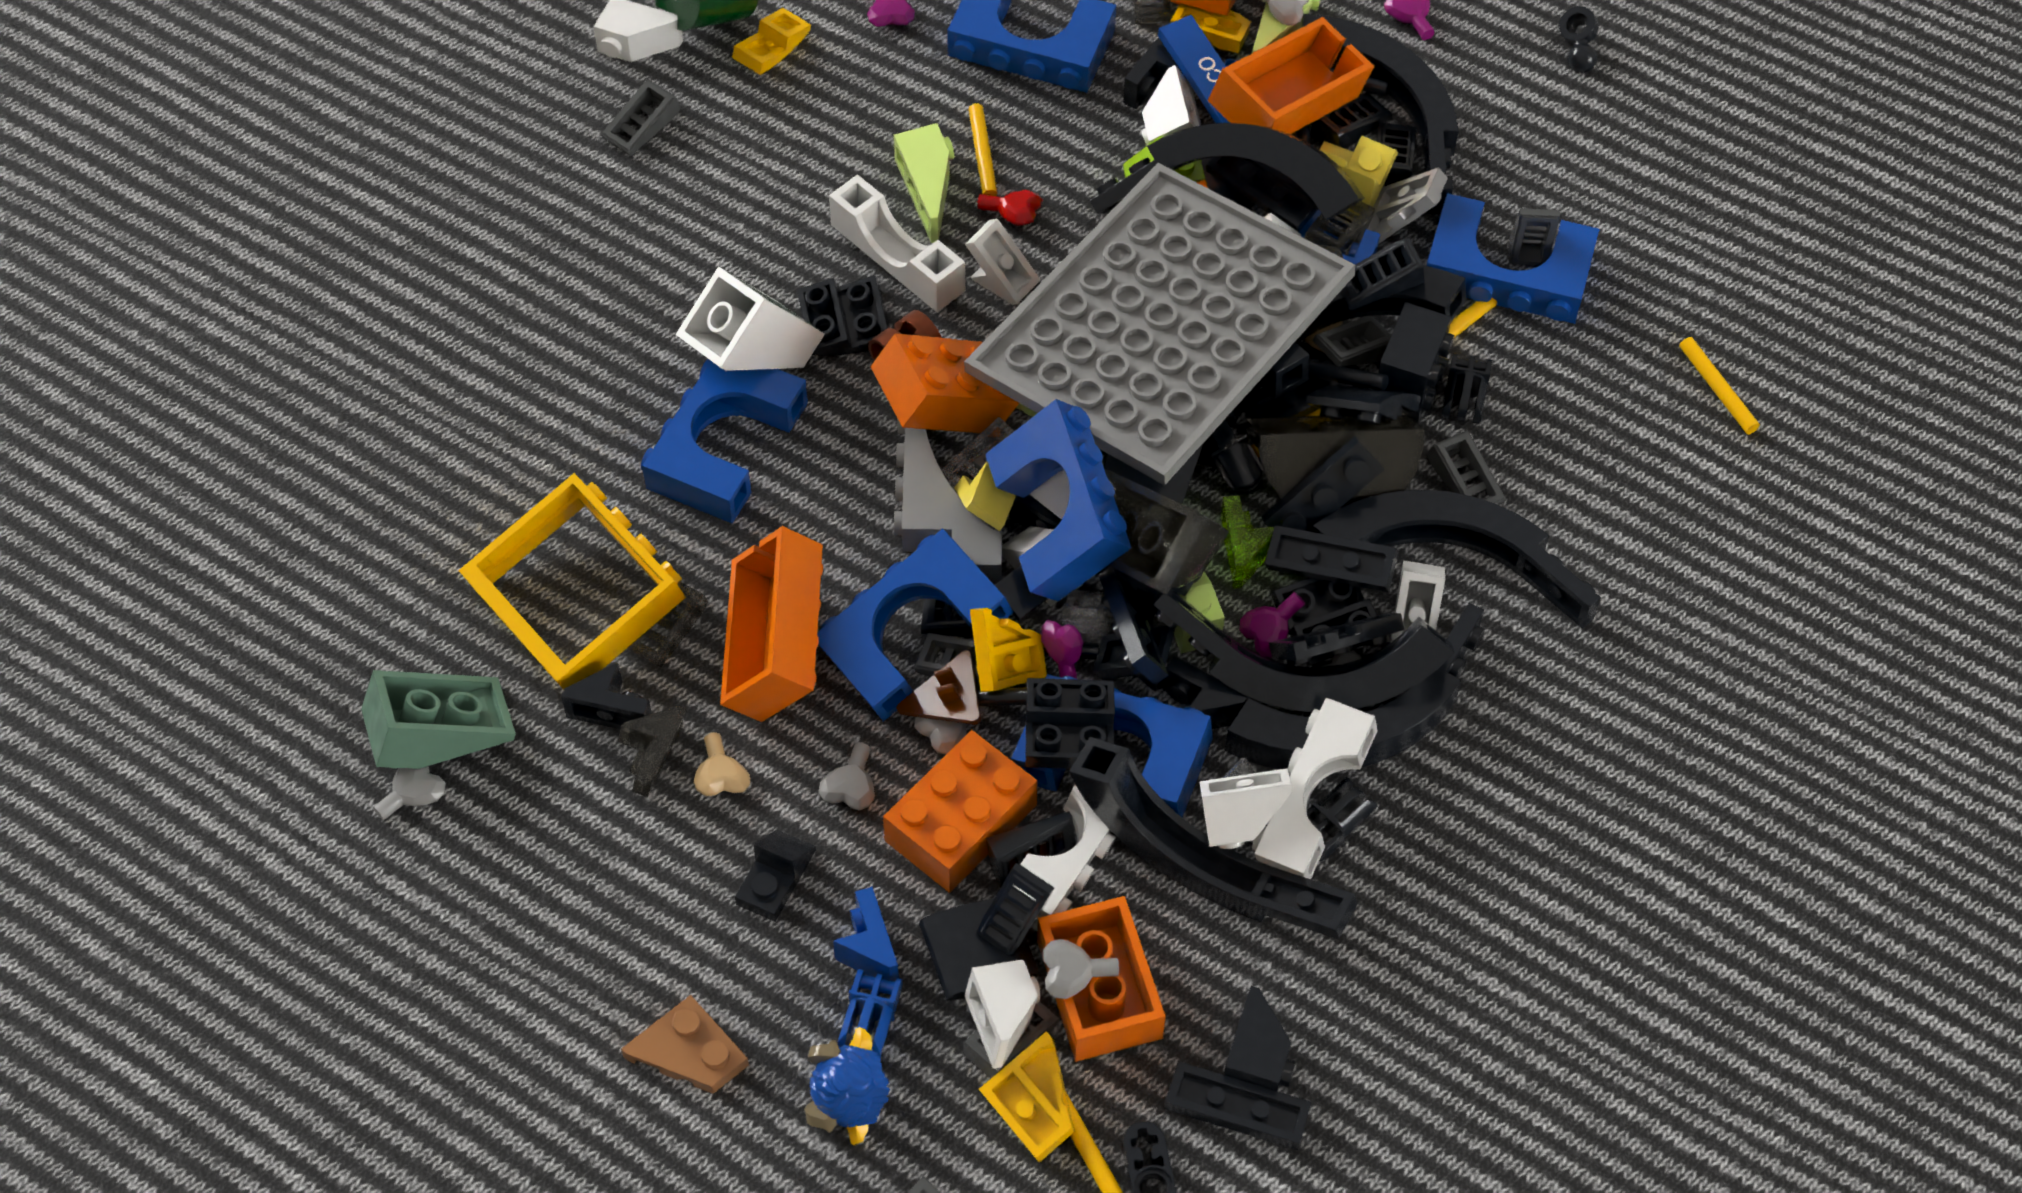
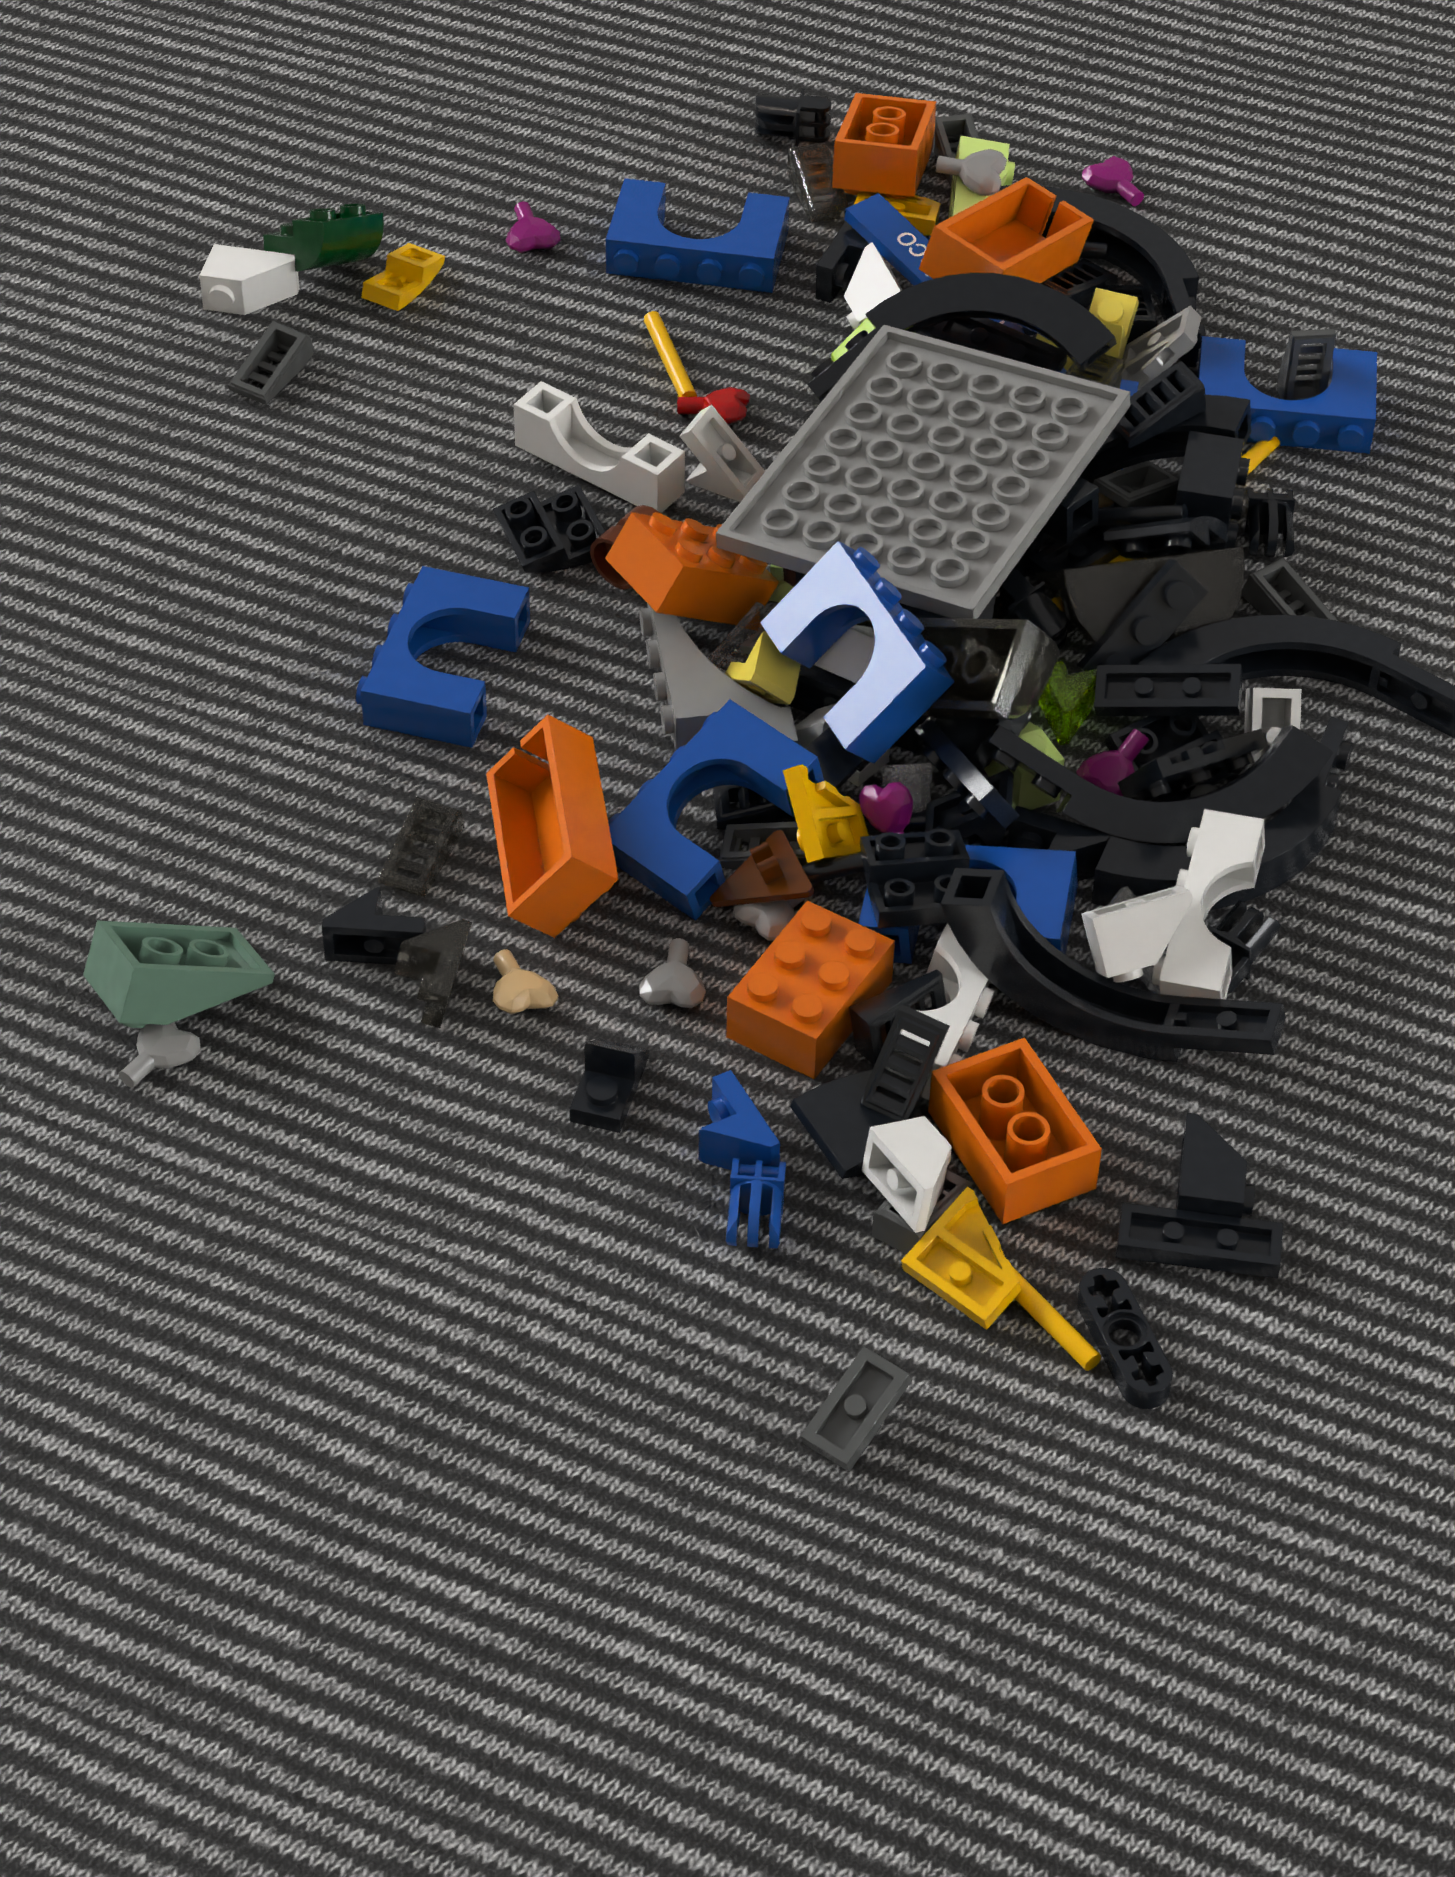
camera: 10 degrees left, 10 degrees down
(532, 531) = (252, 762): yellow window -> none
(688, 1047) = (552, 1267): medium nougat wing -> none
(747, 328) = (454, 534): white slope -> none
(846, 1086) = (751, 1273): blue hair -> none
(925, 168) = (608, 376): yellowish green slope -> none
(1073, 968) = (986, 1112): light grey rock -> none
(1581, 56) = (1310, 202): black plate -> none

